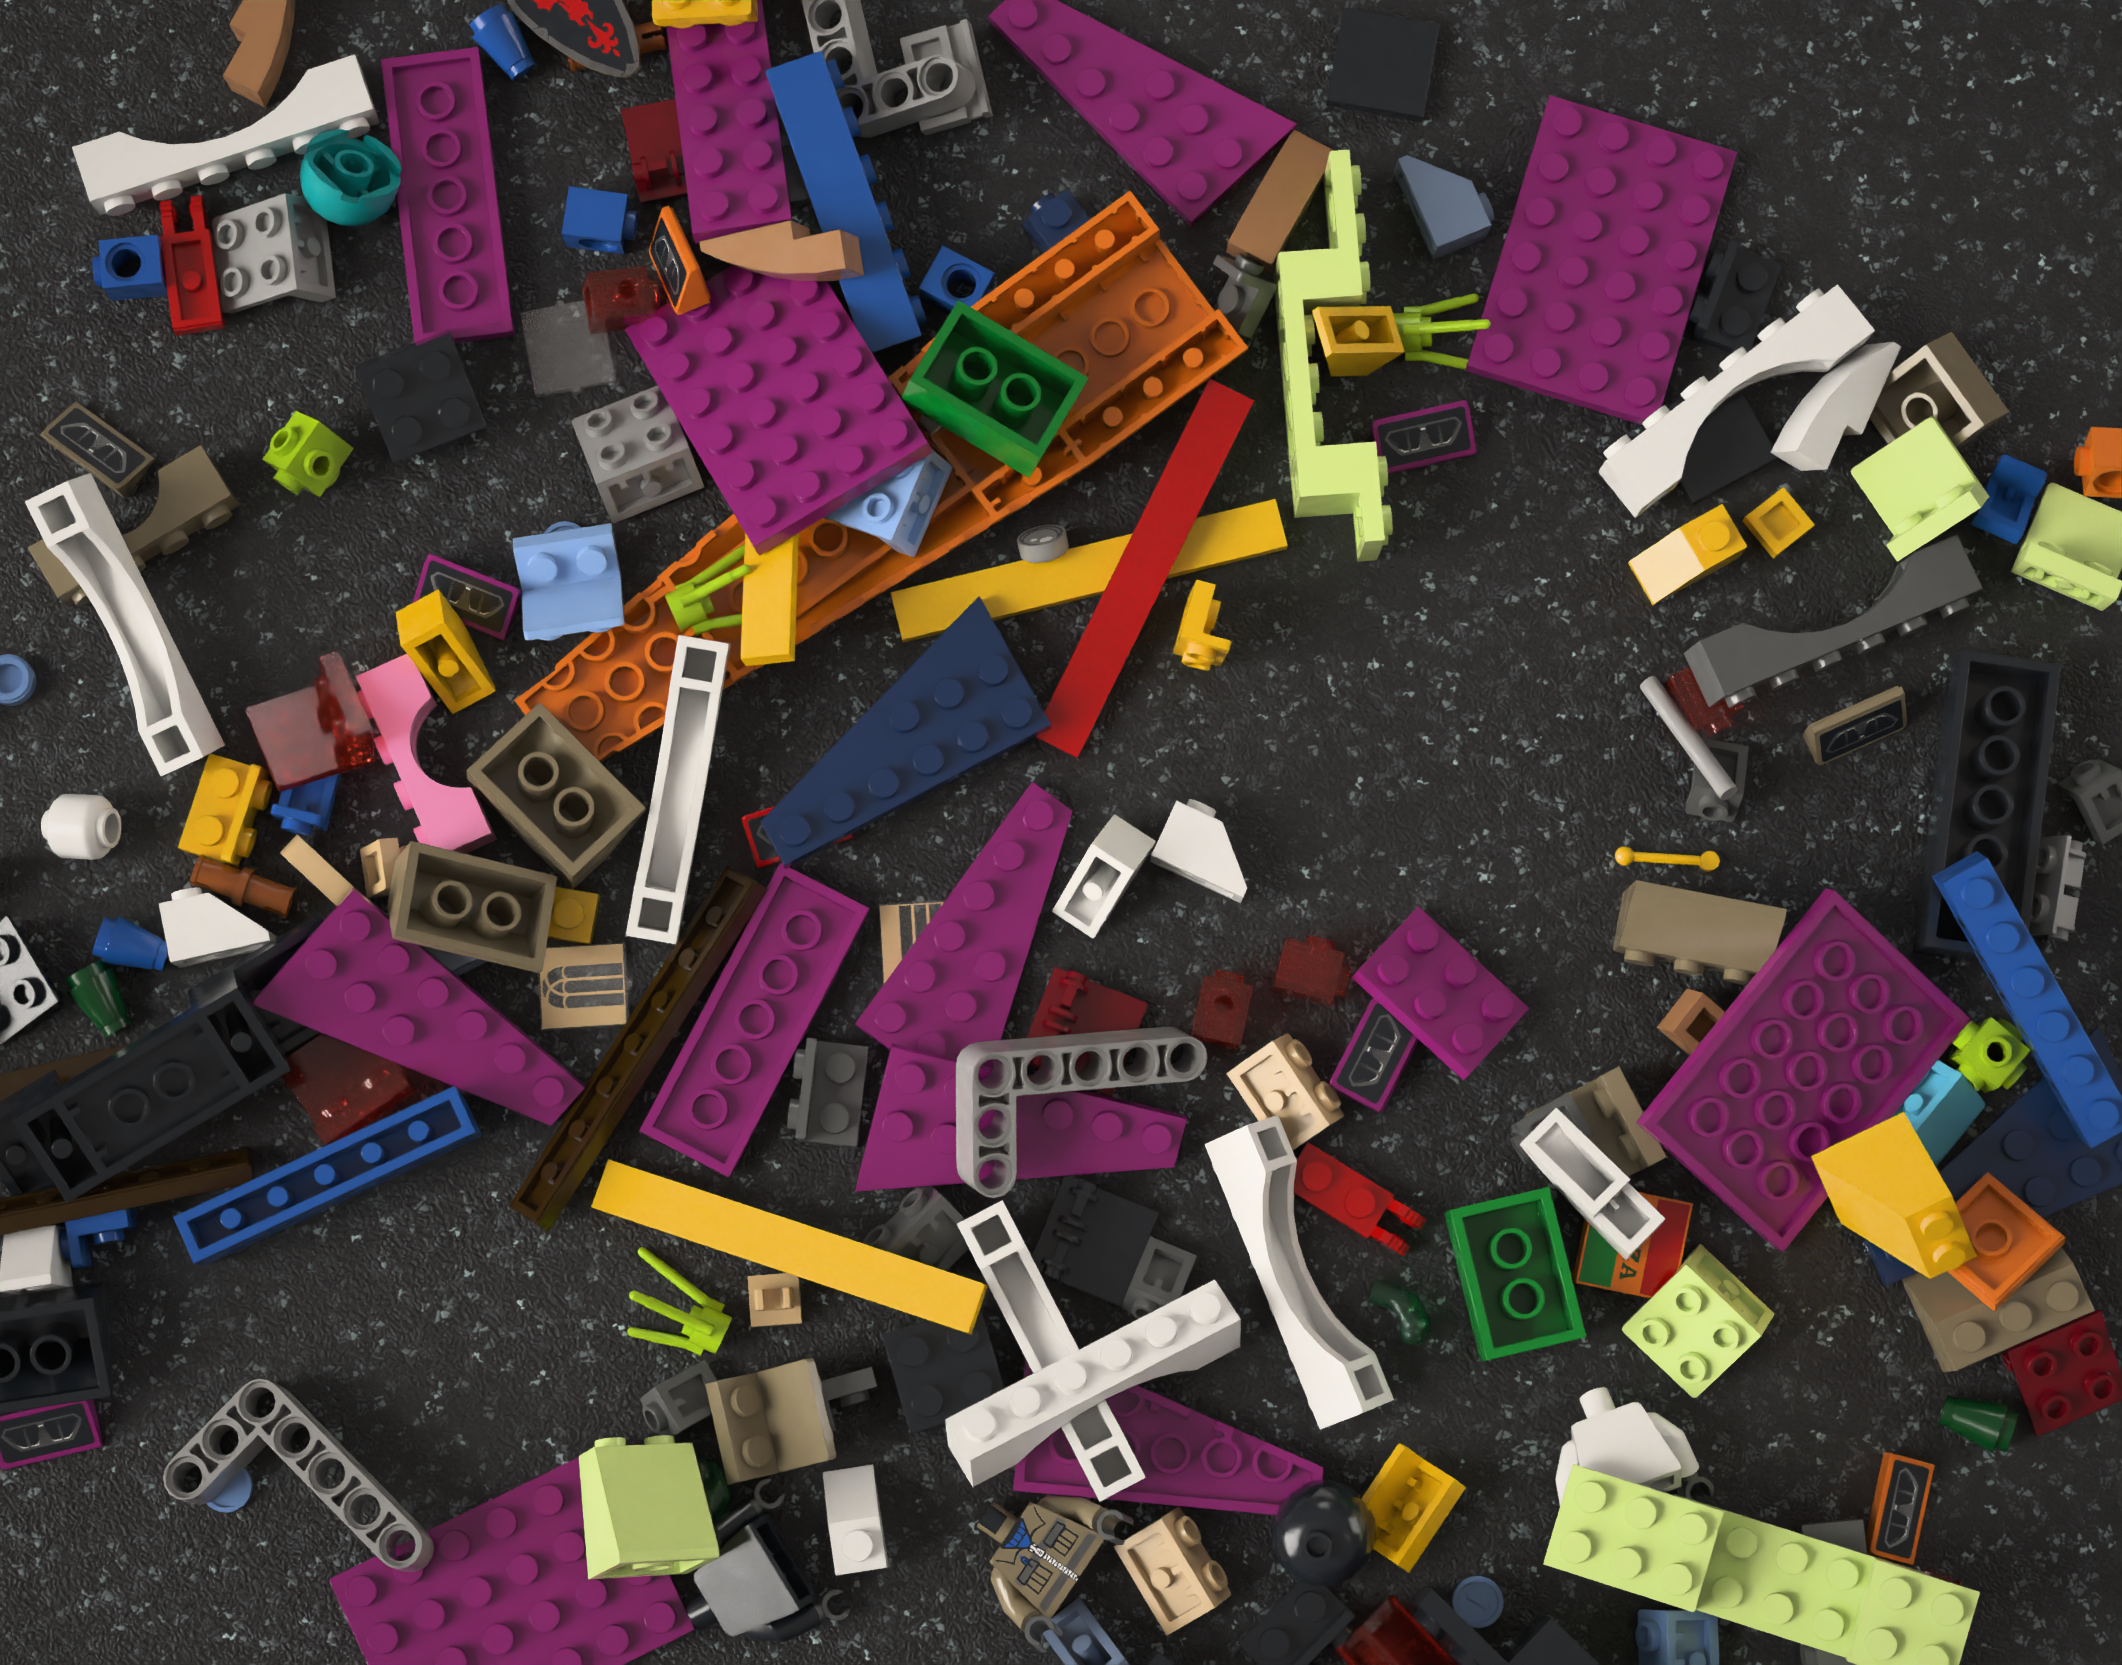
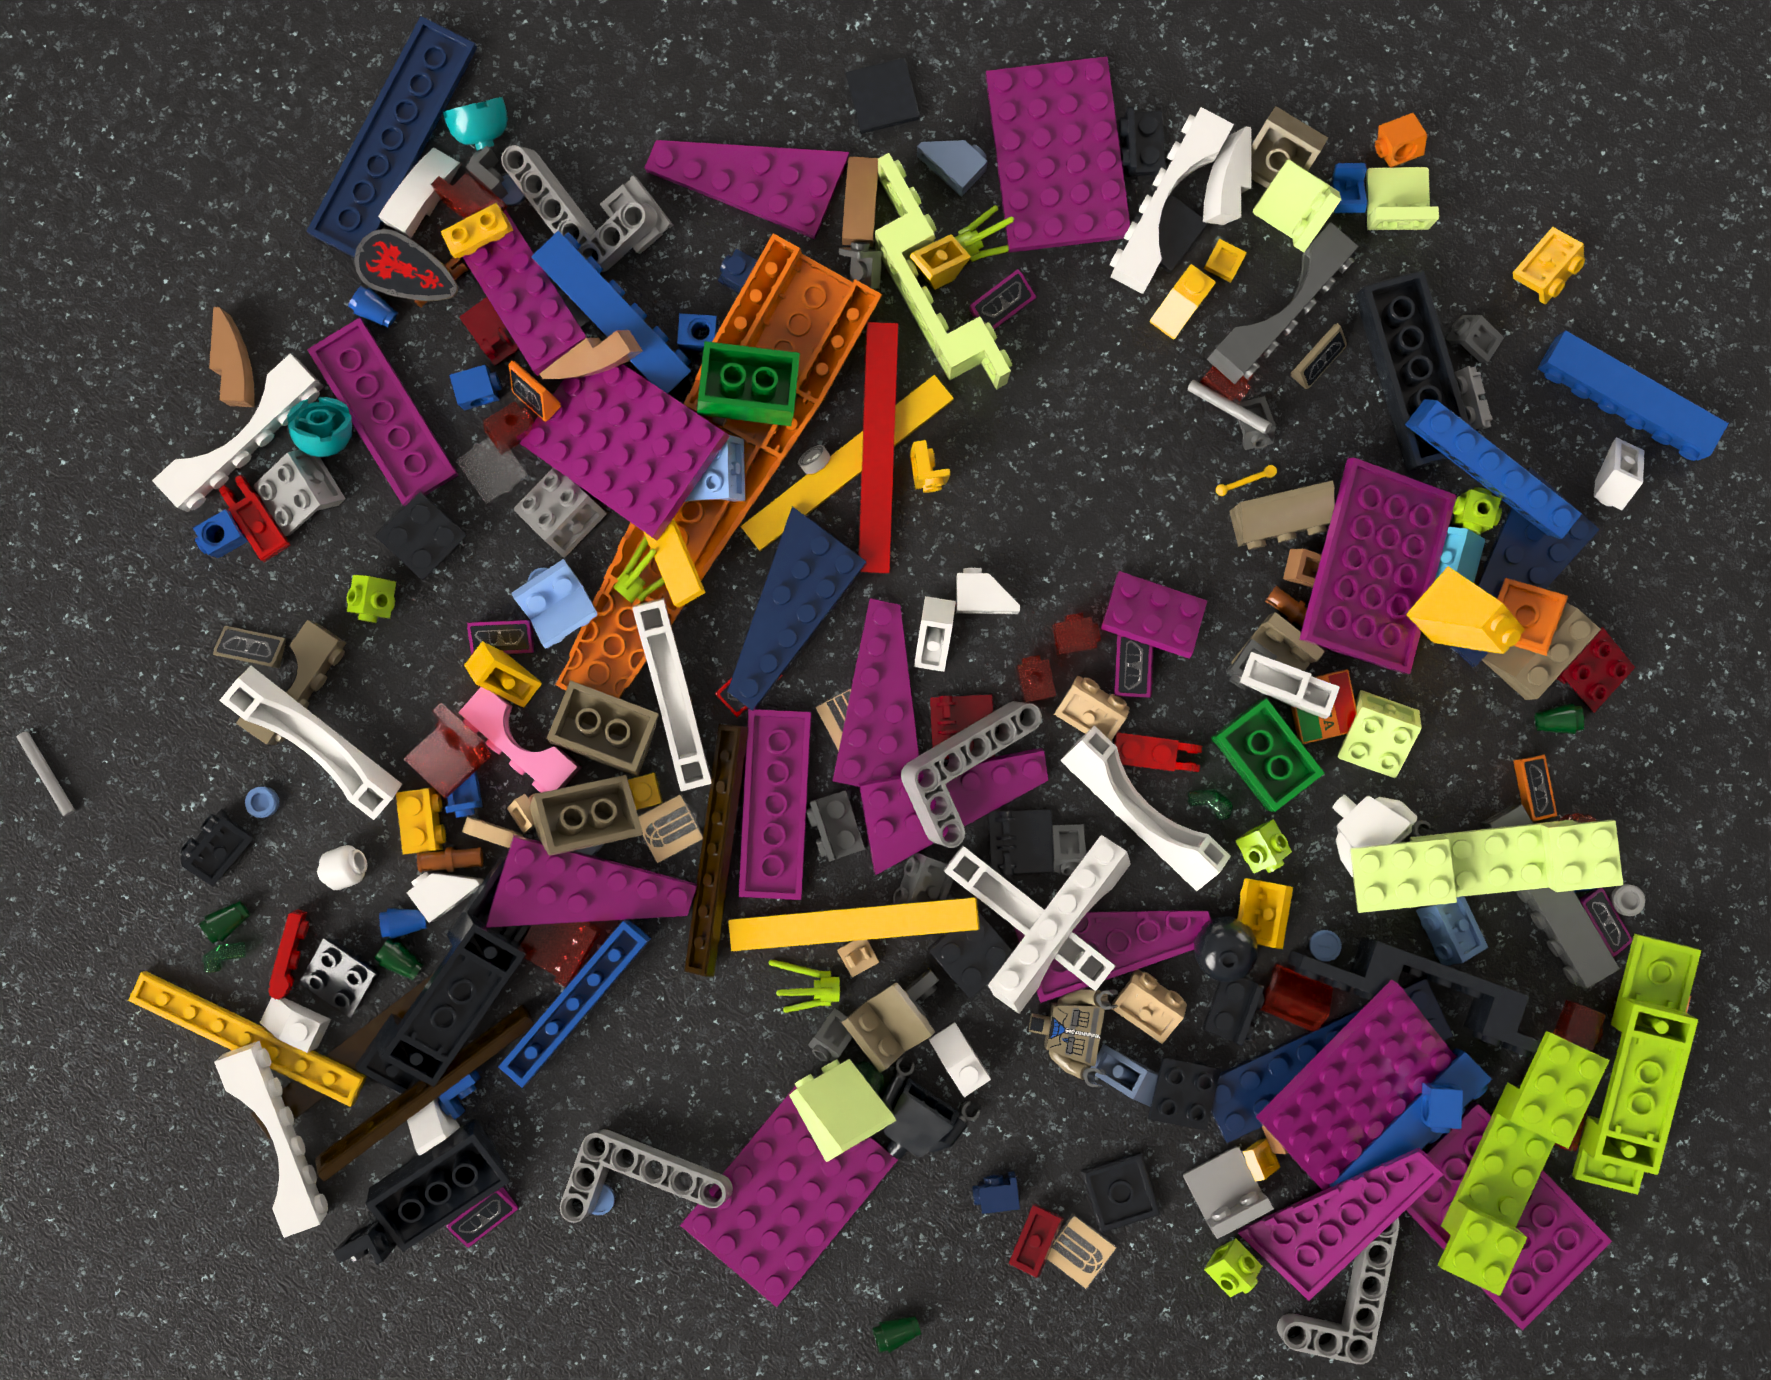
camera: 20 degrees left, 5 degrees up
(1449, 1410) = (1264, 847): none -> lime brick
(1644, 1066) = (1287, 605): none -> dark orange pin

